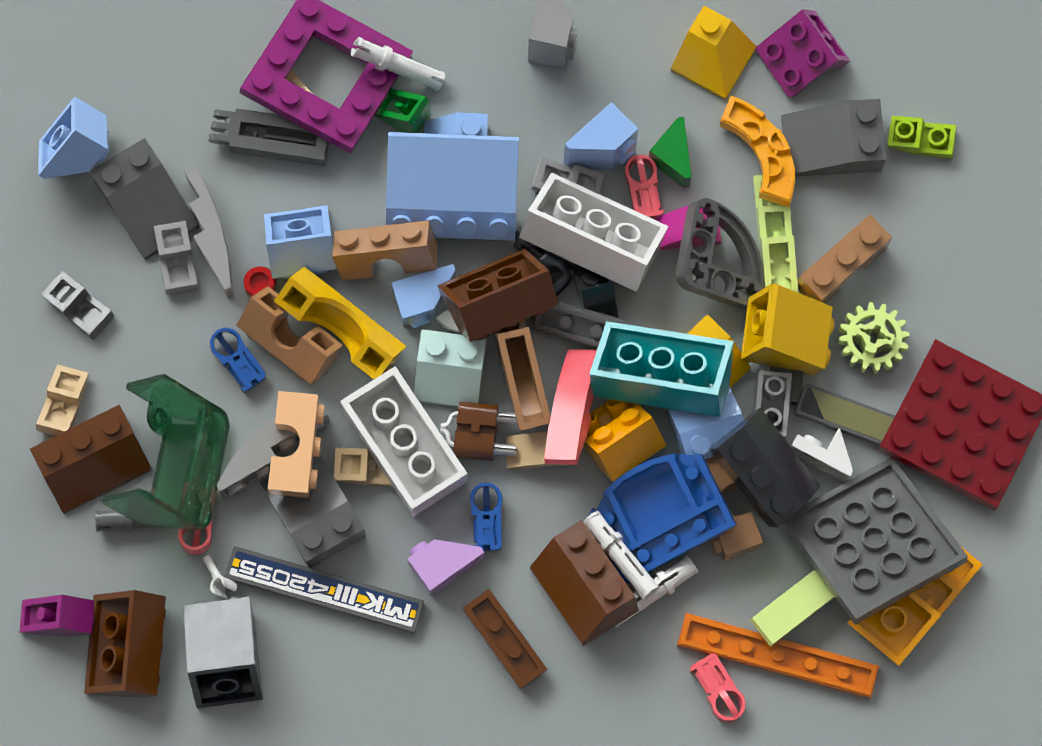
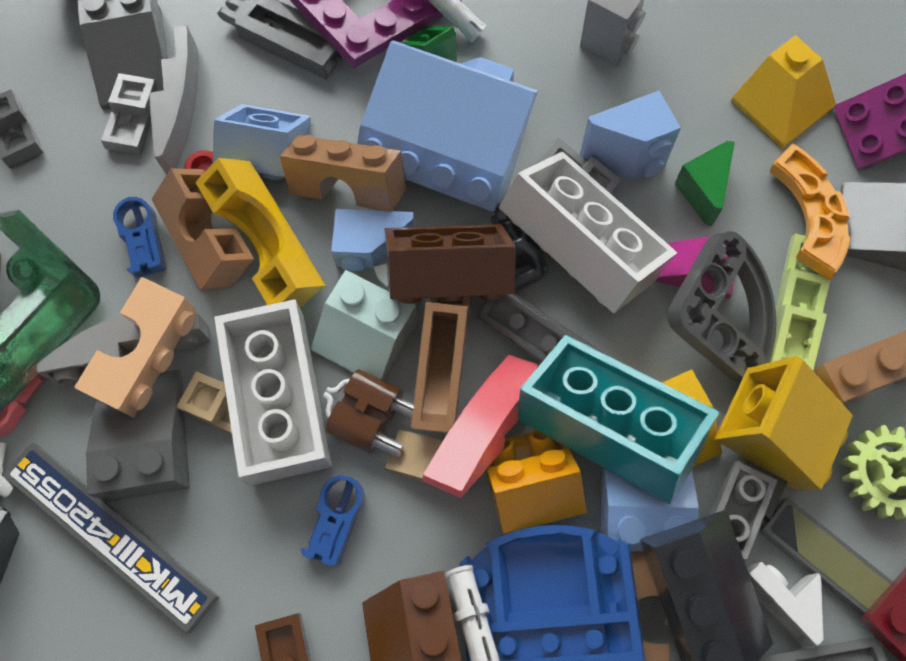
camera: 25 degrees right, 5 degrees down
(442, 562) = (253, 556): lavender slope -> none
(595, 291) = (565, 299): black slope -> none
(644, 193) = (661, 212): coral piece -> none

